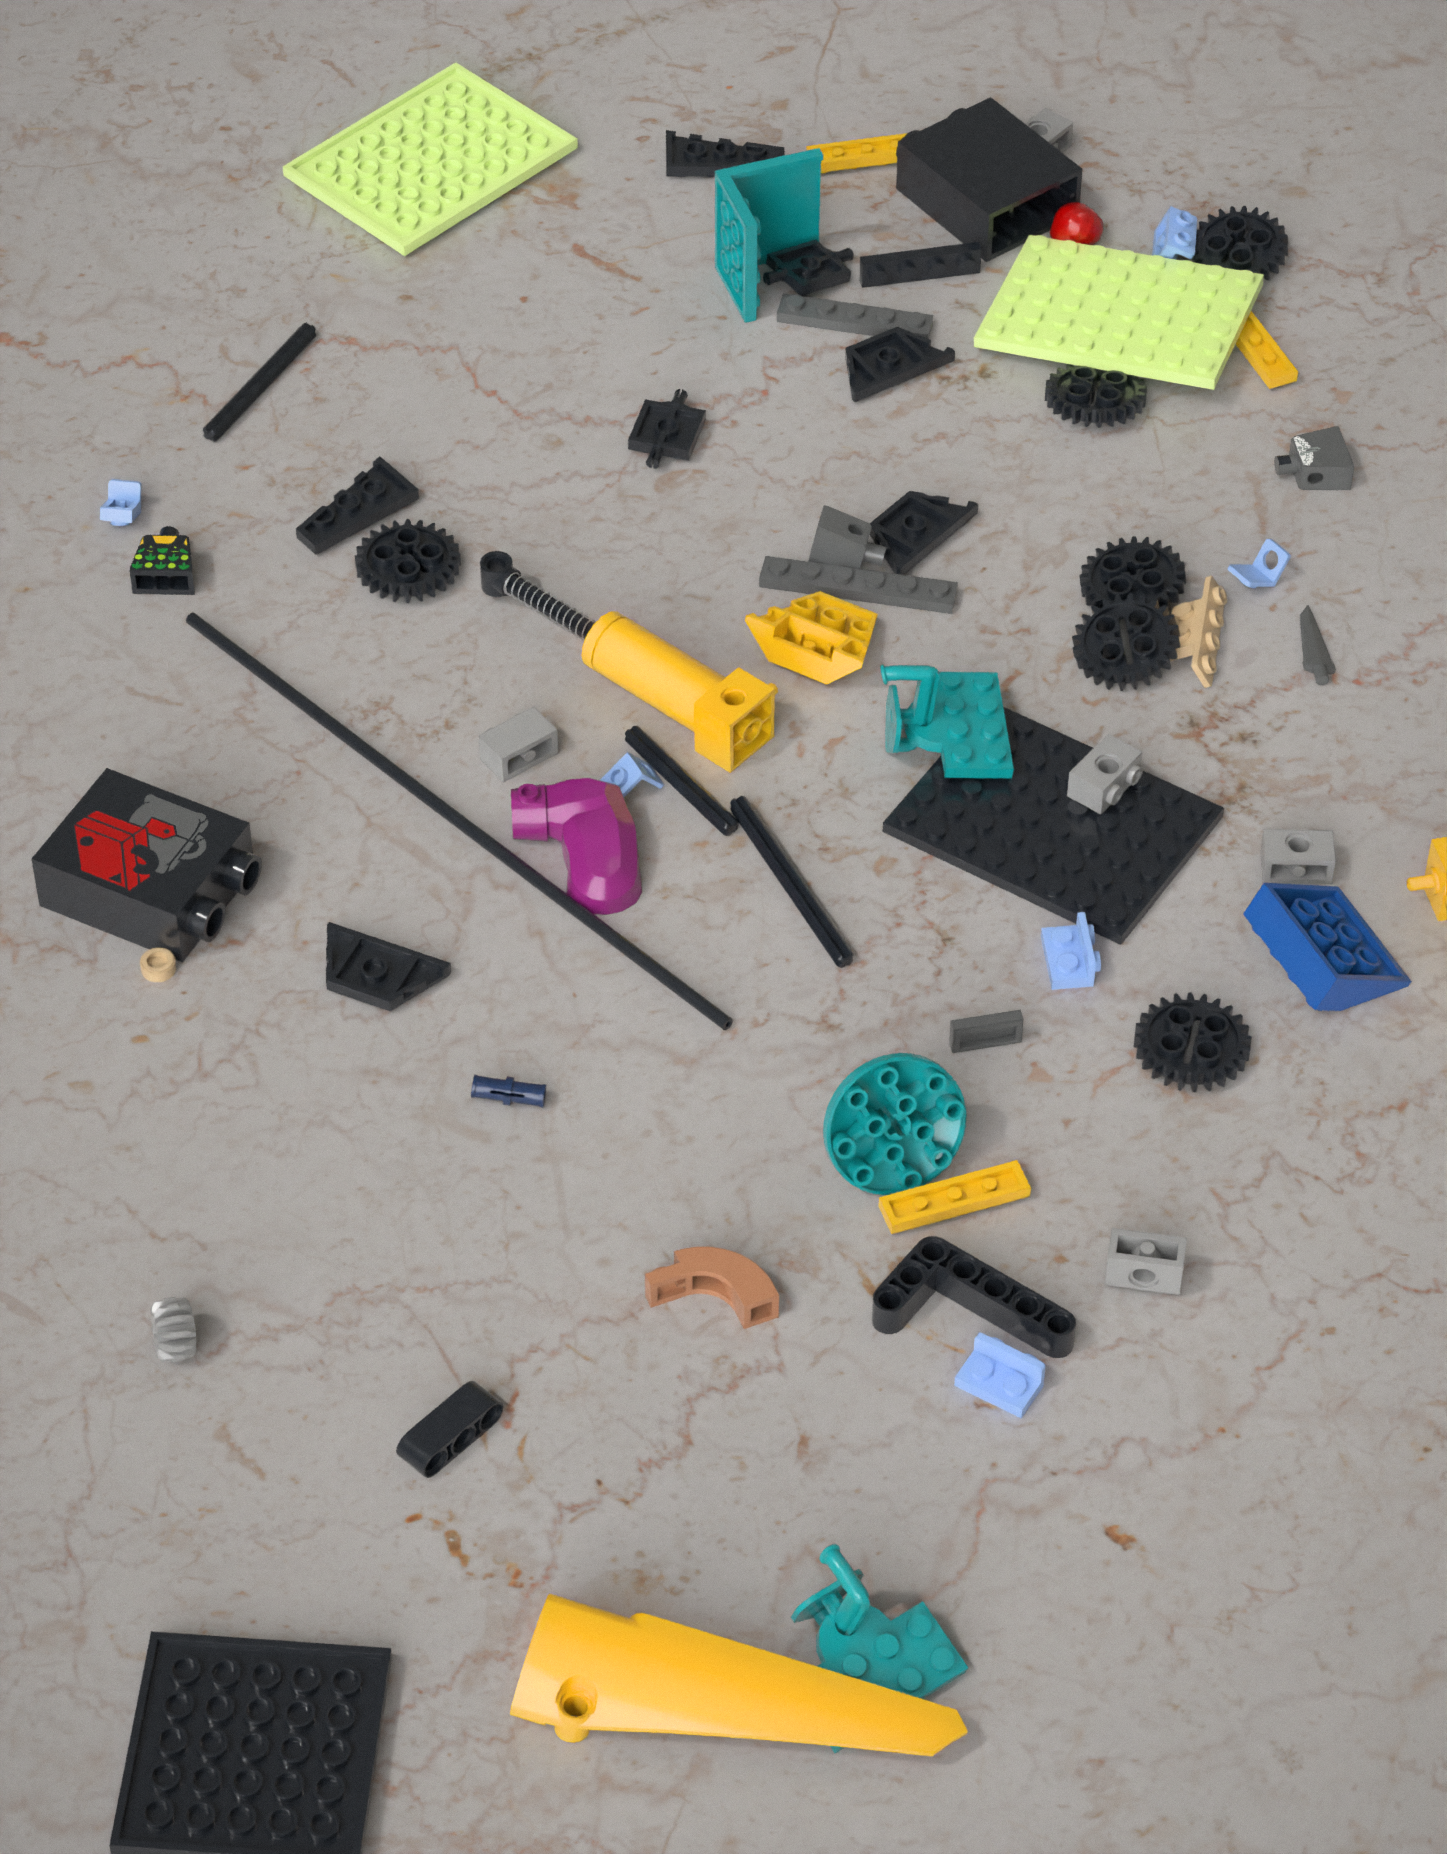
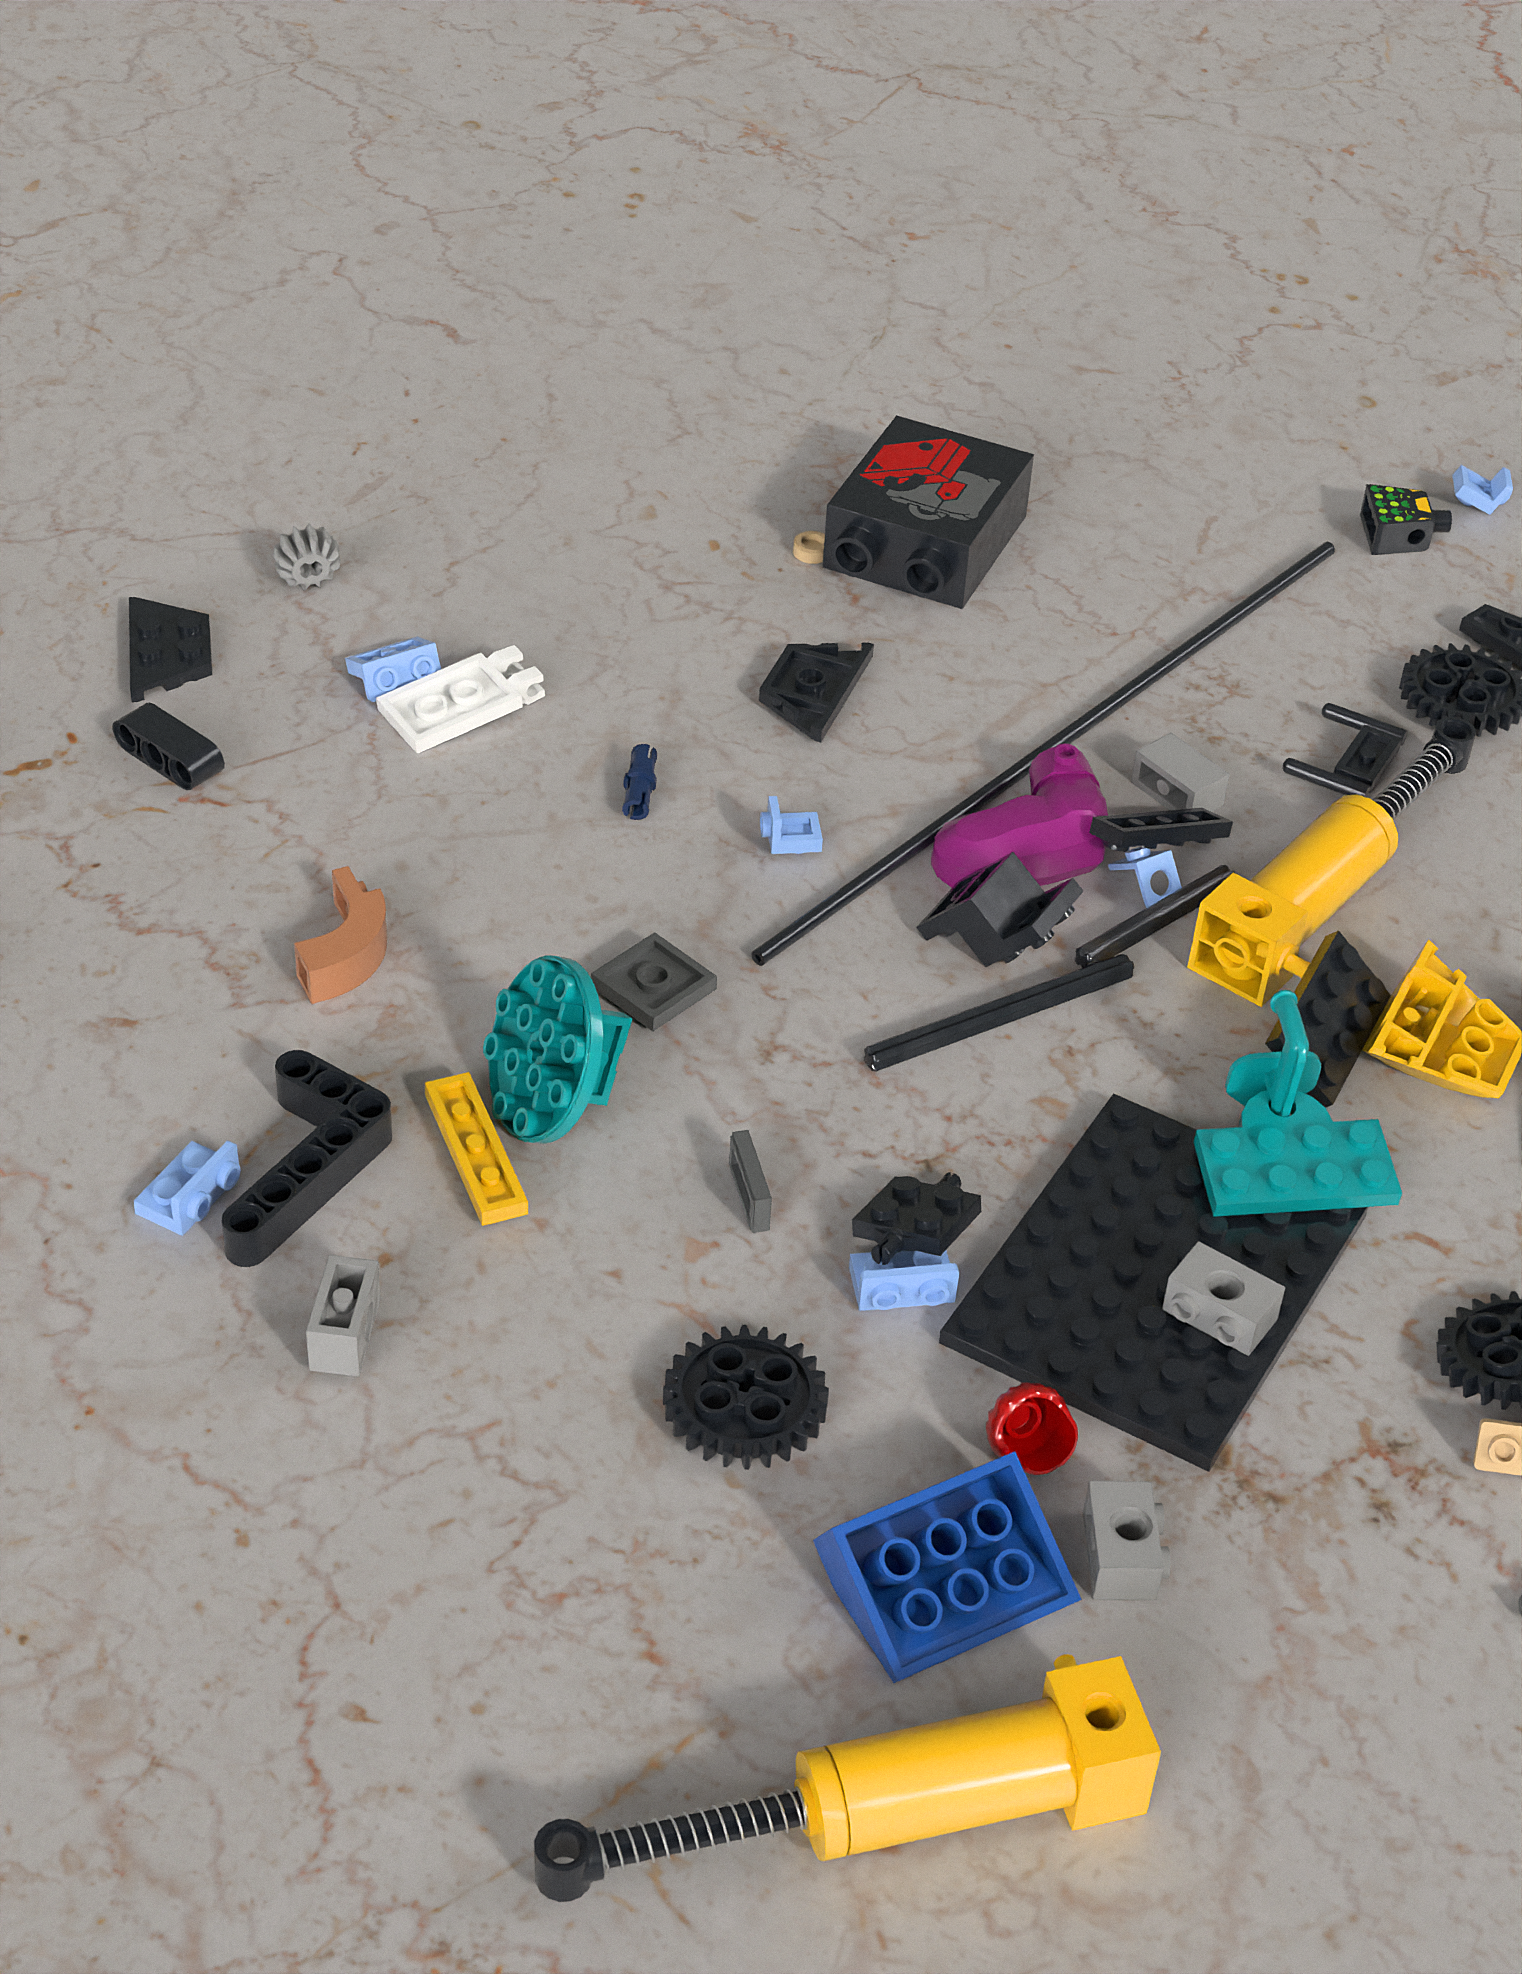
camera: 85 degrees right, 5 degrees down
(283, 1449) = (166, 646): none -> black wing
(331, 1264) = (394, 665): none -> light blue bracket
(384, 1220) = (460, 698): none -> white tile
(491, 632) = (1363, 760): none -> black plate
(579, 991) = (790, 831): none -> light blue bracket
(602, 754) = (1160, 827): none -> black plate
(695, 861) = (1001, 910): none -> black bracket
(763, 1085) = (654, 981): none -> dark grey plate
(806, 683) = (1338, 1010): none -> black plate
(1021, 936) = (916, 1216): none -> black plate
(1215, 890) = (1033, 1425): none -> red hair

